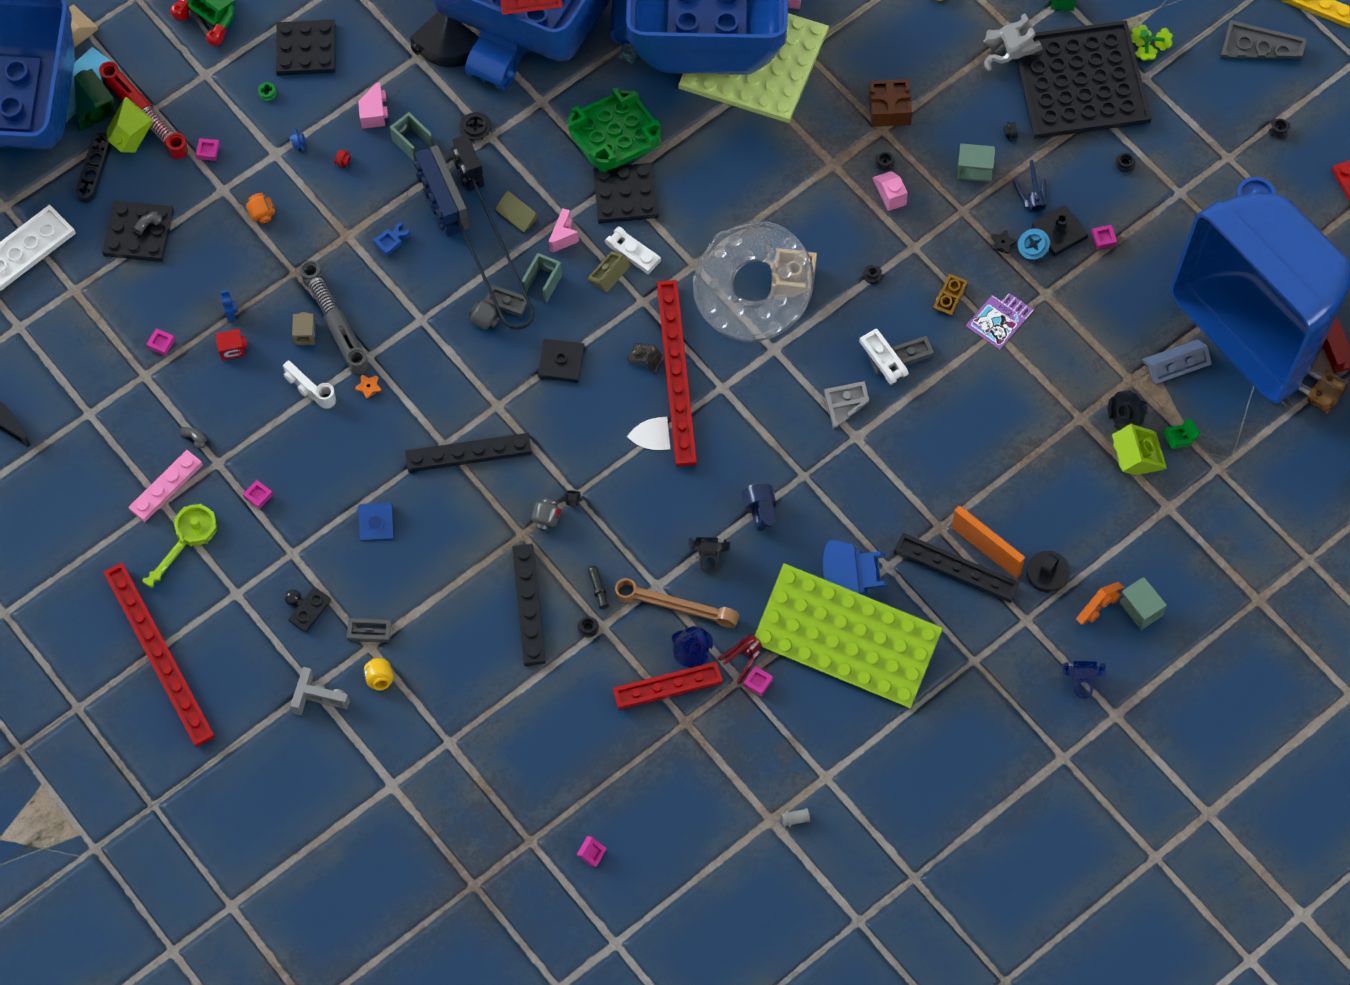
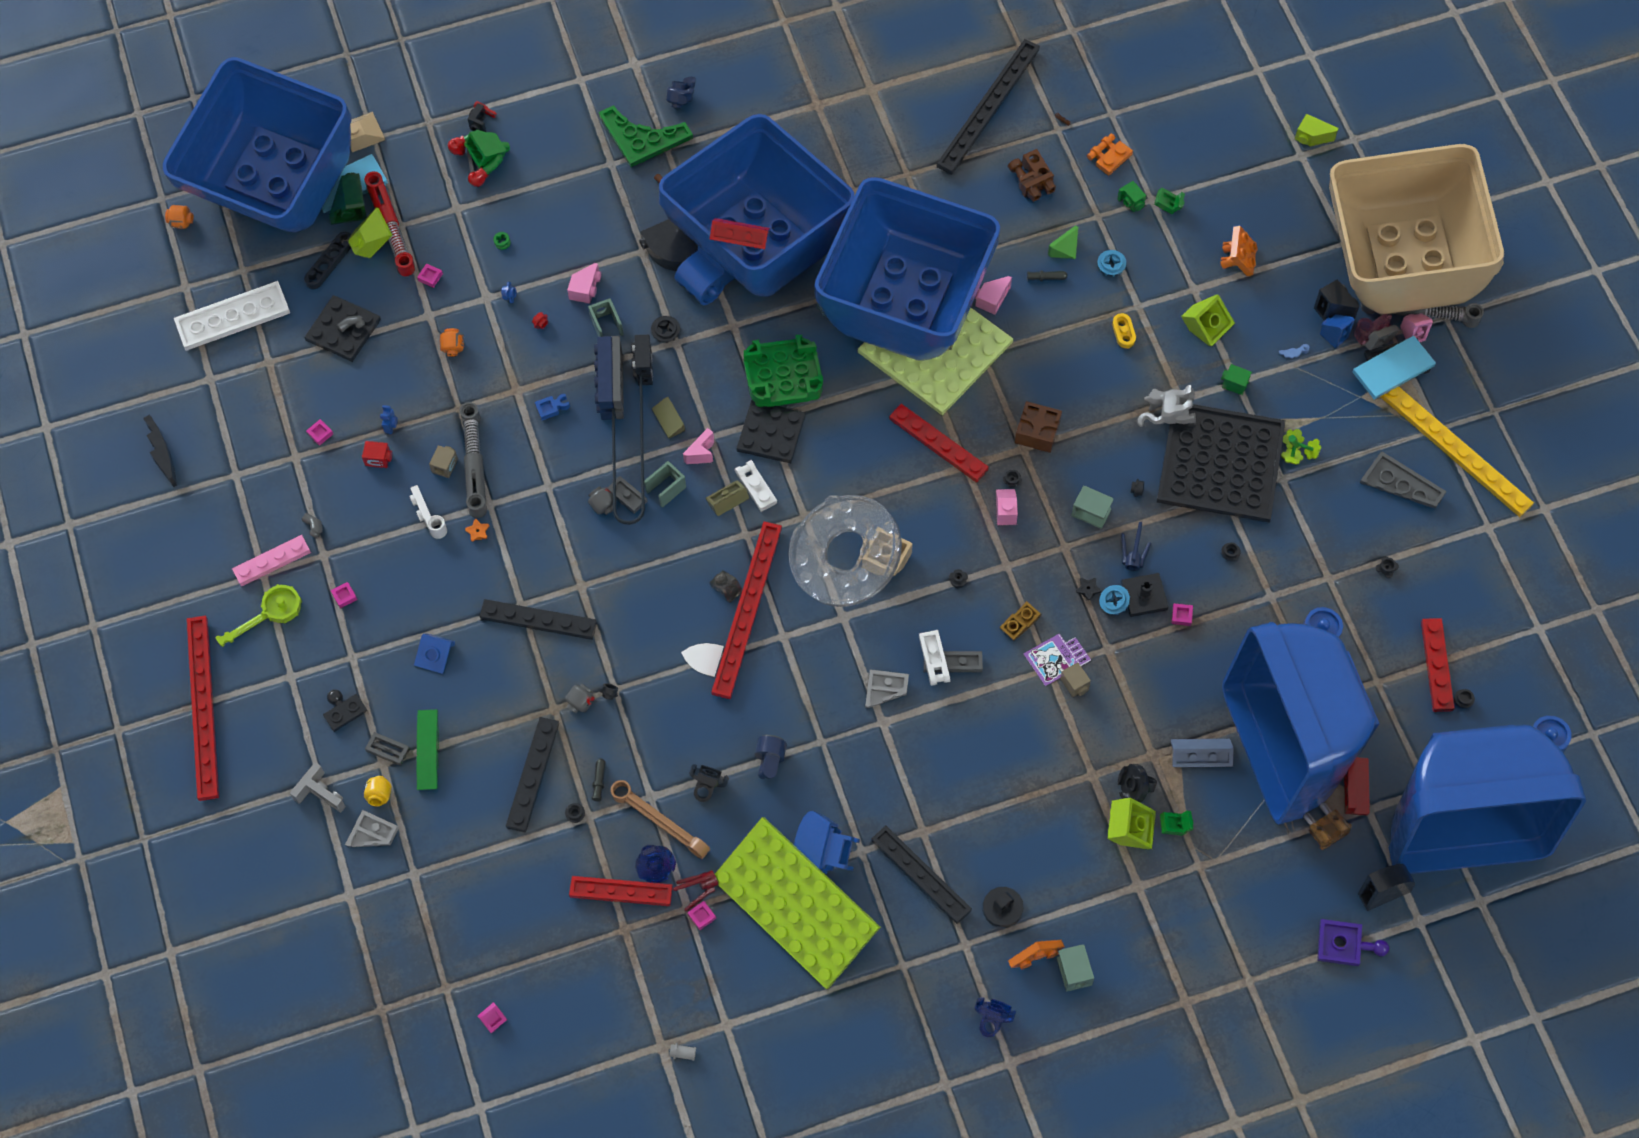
camera: 20 degrees right, 0 degrees up
(305, 47) = (550, 212): black plate -> none
(389, 715) = (371, 831): none -> light grey wing
(412, 616) = (427, 749): none -> green slope
(561, 360) = (652, 564): black plate -> none
(797, 150) = (938, 443): none -> red plate
(988, 542) = (956, 861): orange tile -> none
(1028, 333) = (1075, 680): none -> dark tan brick

